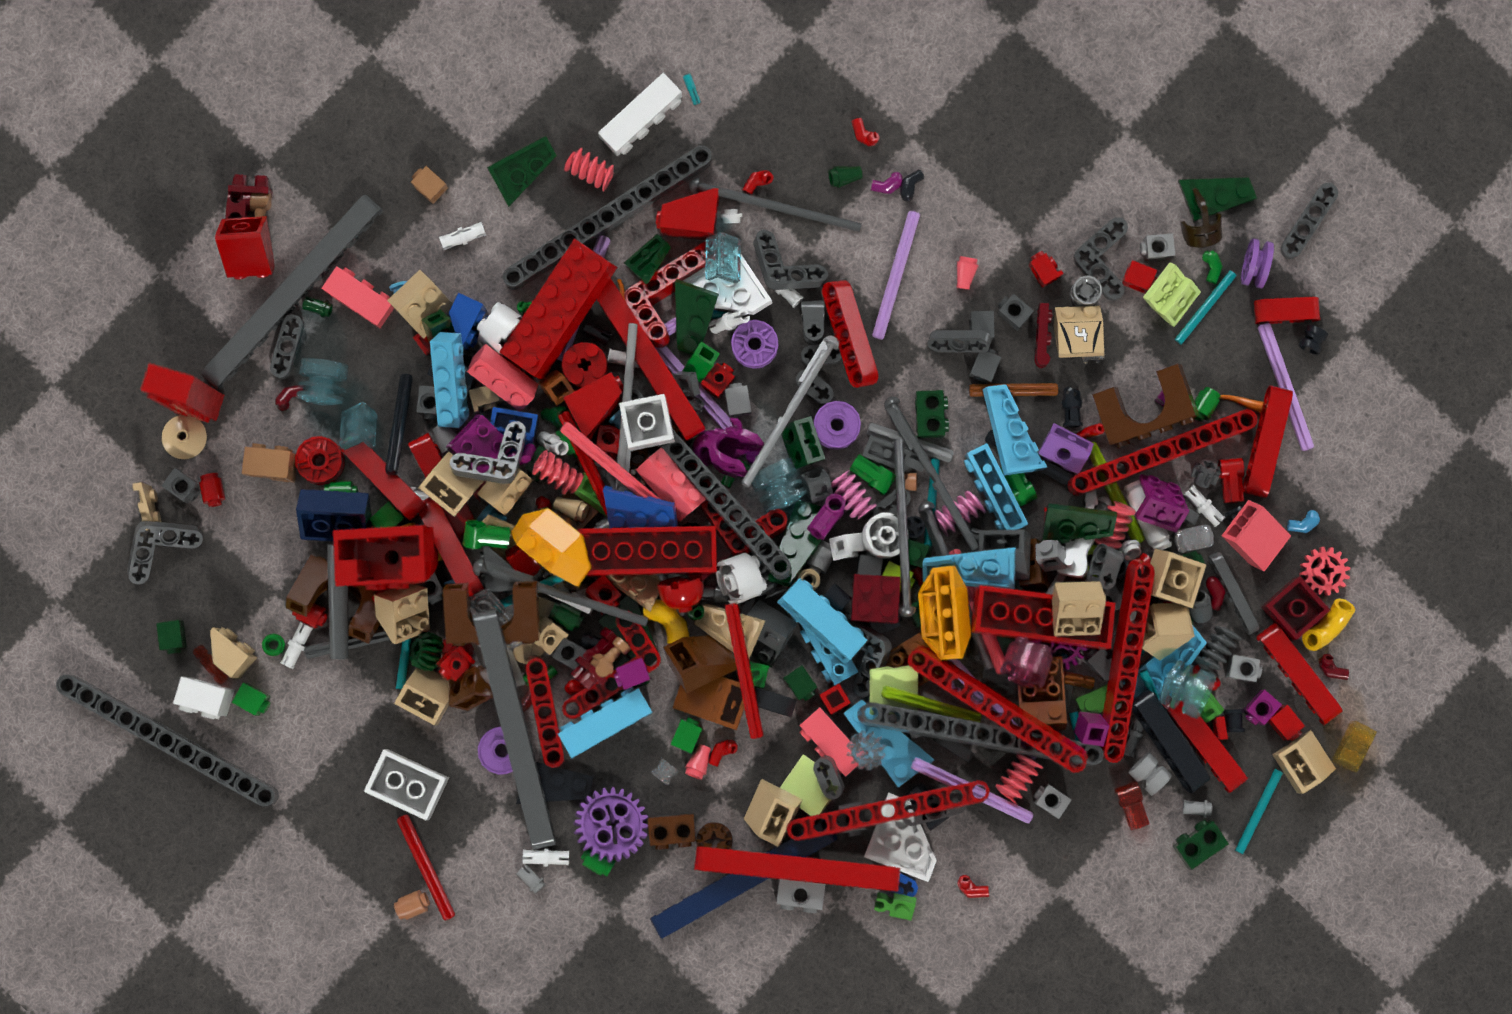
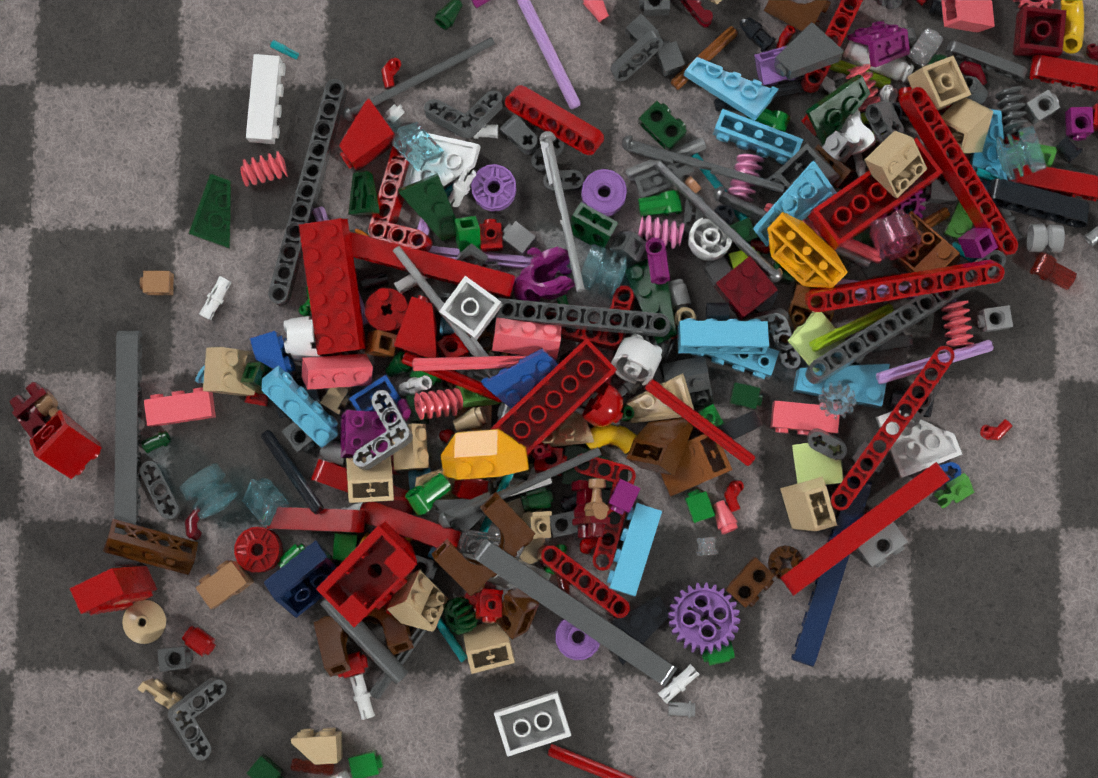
camera: 35 degrees left, 0 degrees up
(237, 387) = (150, 551): none -> reddish brown fence
(266, 644) = (345, 718): green plate -> none
(602, 582) = (542, 451): none -> dark red arm
(834, 699) = (779, 385): red brick -> none
(846, 546) = (689, 270): white brick -> none
(1090, 459) = (807, 53): none -> dark grey slope
(1204, 506) = (910, 19): white pin -> none
(1219, 727) = (1063, 162): red tile -> none

